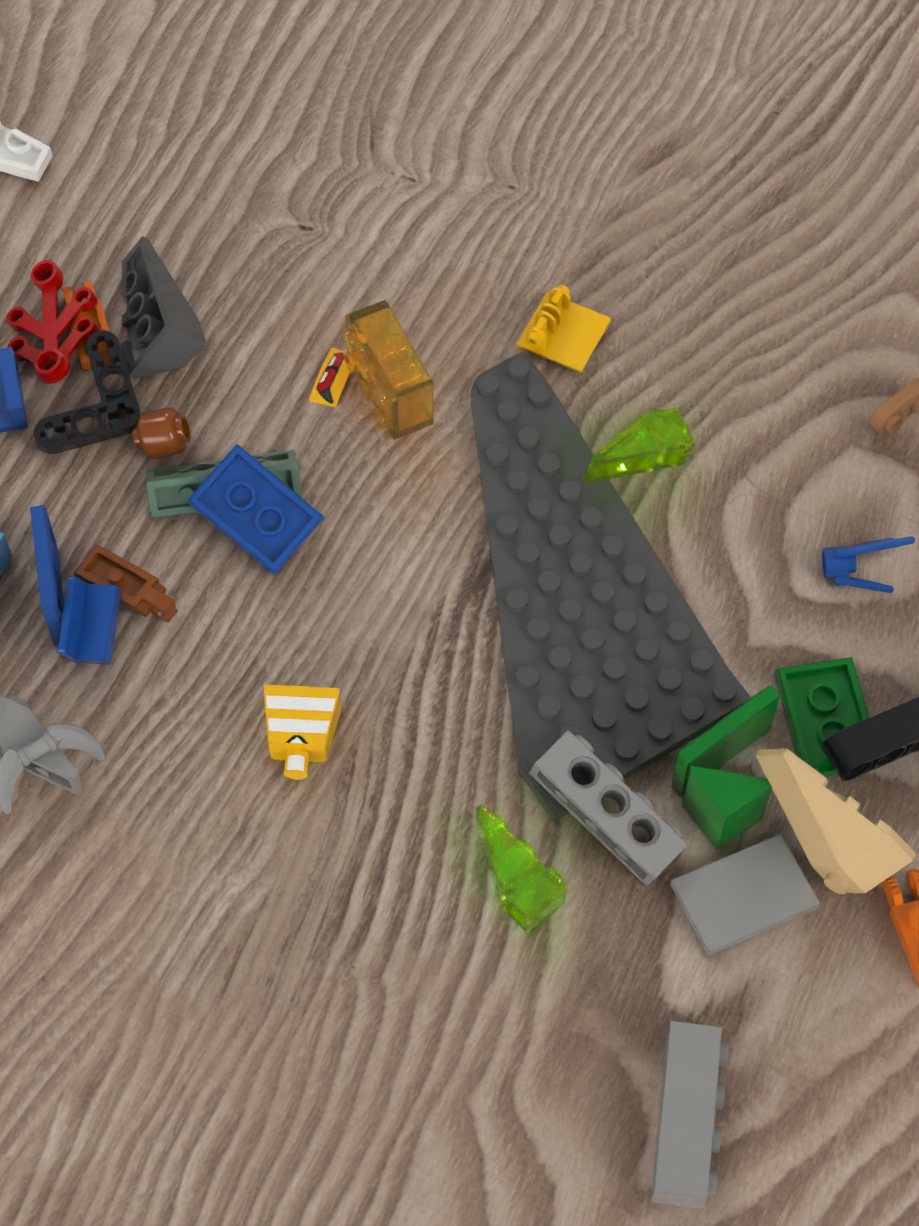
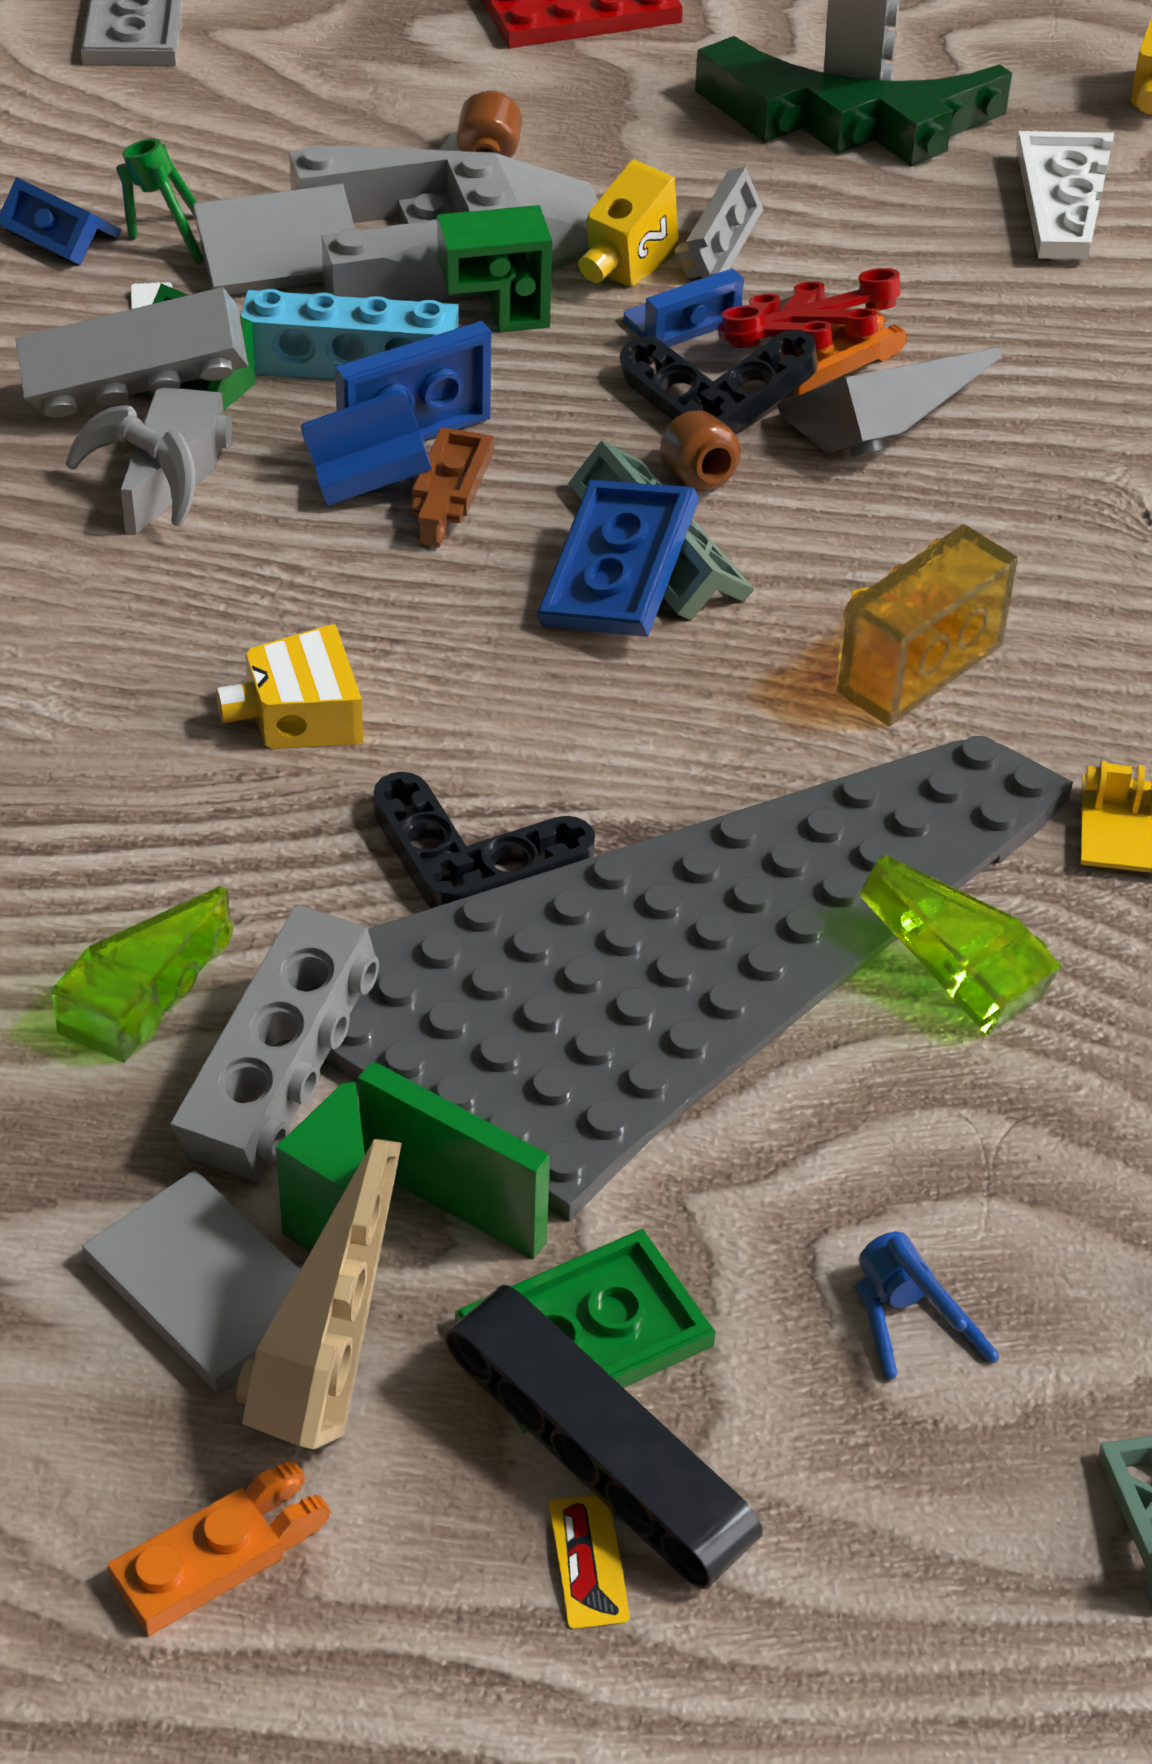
camera: 70 degrees right, 15 degrees down
(470, 682) = (538, 846): none -> black beam

